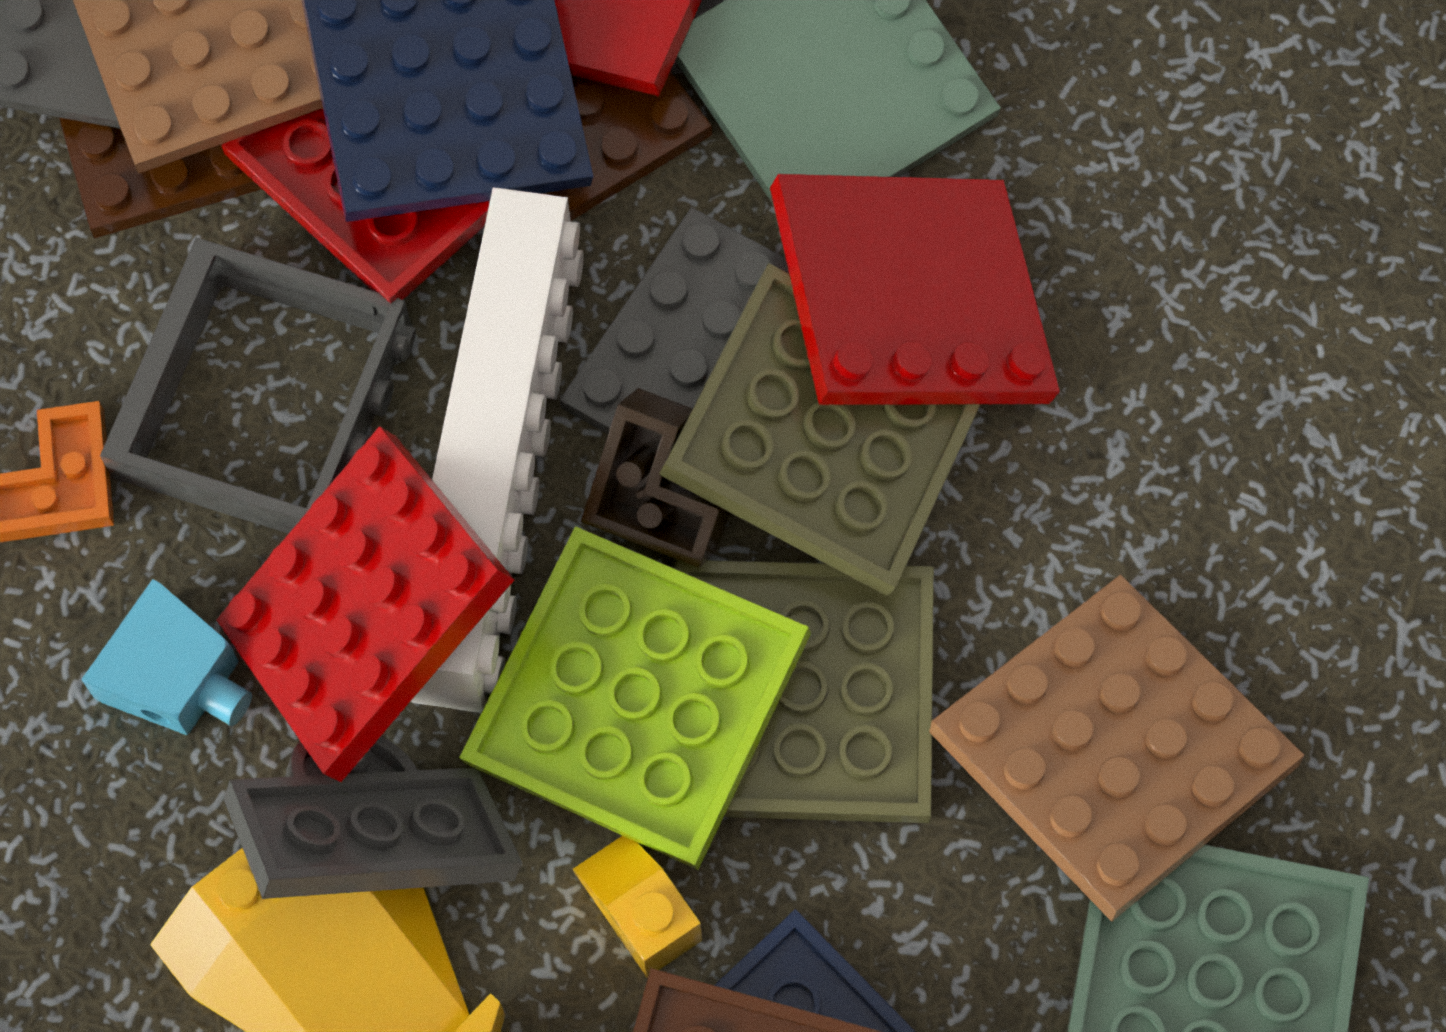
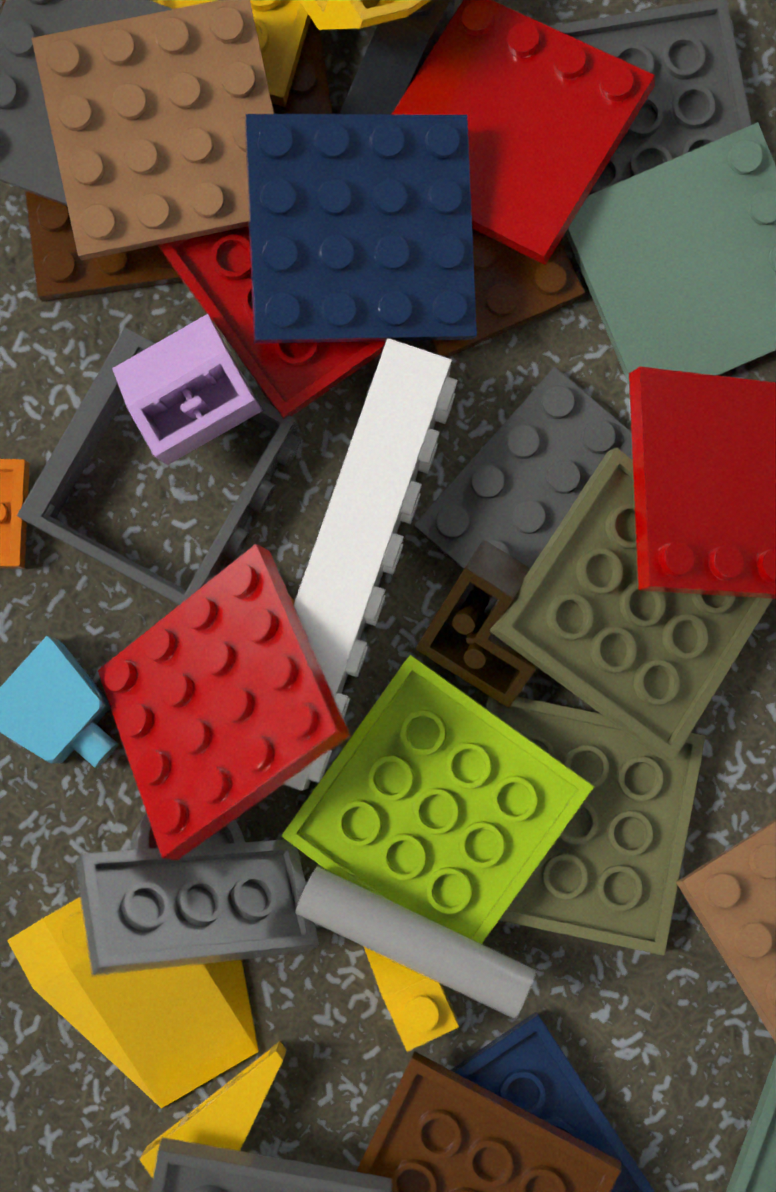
camera: 10 degrees right, 15 degrees up
(279, 285) = (185, 390): none -> lavender slope
(632, 831) = (416, 942): none -> light grey piece

